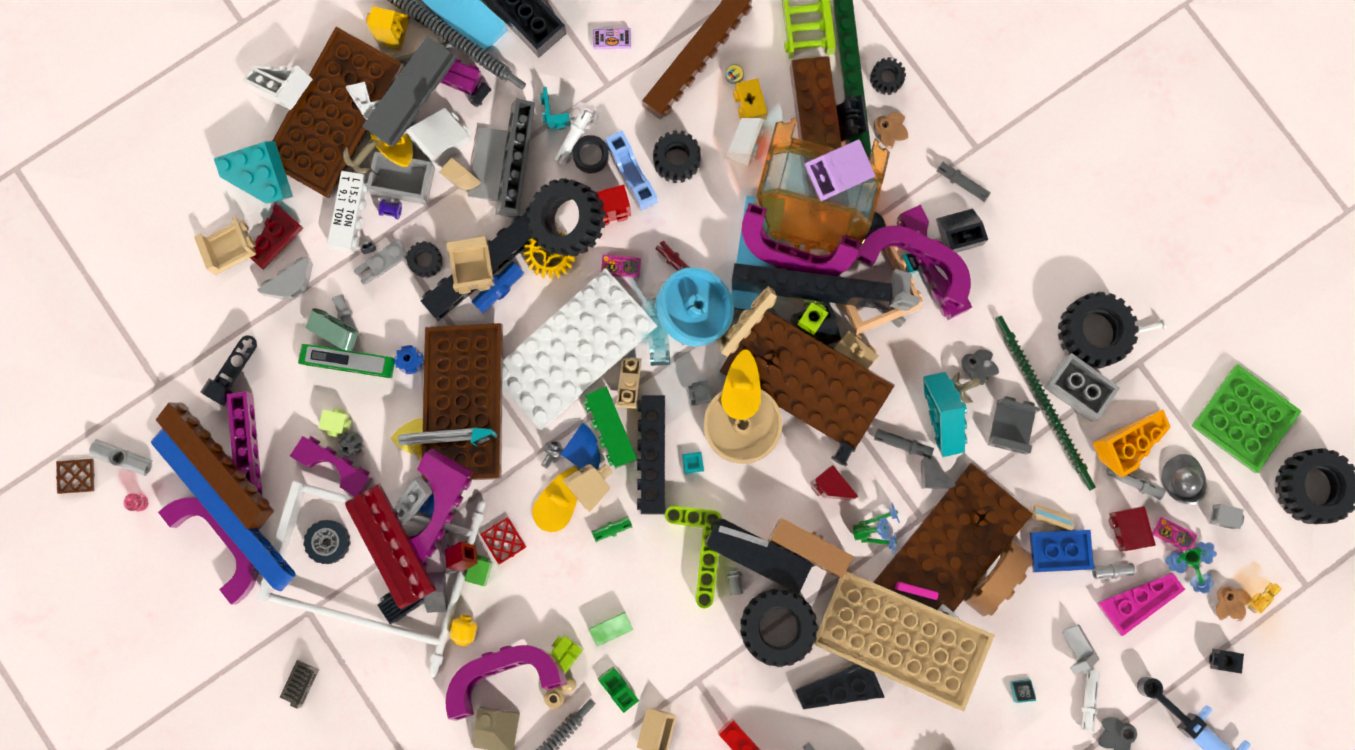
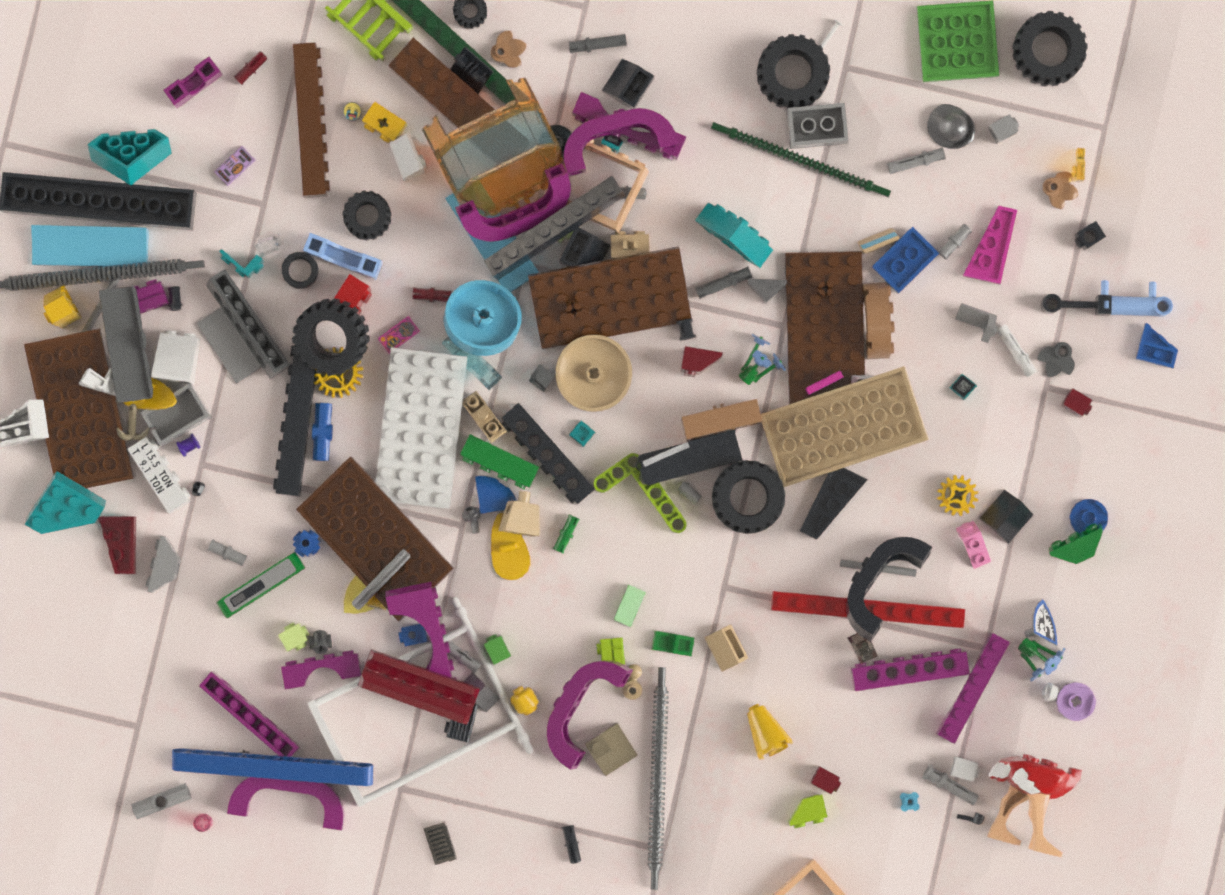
camera: 40 degrees left, 5 degrees up
(68, 469) = (149, 834): reddish brown window -> none
(215, 465) = (238, 743): reddish brown brick -> none
(220, 387) = (187, 687): black beam -> none
(226, 247) = (93, 580): tan panel -> none
(320, 532) = (372, 737): black wheel -> none
(332, 329) = (229, 571): sand green beam -> none
(382, 261) = (218, 488): light grey hinge -> none
(412, 499) = (405, 638): light grey hinge -> none
(416, 251) = (236, 459): black tyre -> none
(459, 175) = (218, 374): tan brick -> none
(461, 556) = (475, 649): dark red brick -> none
(470, 264) = (290, 433): tan panel -> none
(482, 435) = (413, 549): teal slope -> none
(495, 527) = (480, 608): red window -> none
(577, 129) = (276, 269): white pin -> none
(736, 332) = (530, 292): tan wing -> none
(742, 388) = (569, 347): yellow shield -> none
(808, 325) = (579, 258): lime brick -> none
(839, 170) = (502, 129): lavender slope -> none
(900, 291) = (623, 173): light grey bracket -> none
(966, 386) = (733, 198): dark tan piece -> none
(982, 365) = (732, 172): dark grey plate -> none
(1013, 425) = (792, 198): dark grey panel -> none
(1127, 446) = (888, 139): light orange wedge -> none
(1131, 529) = (940, 200): dark red slope -> none
(1174, 534) = (977, 175): tile -> none
(1193, 558) = (1000, 185): medium blue plant -> none

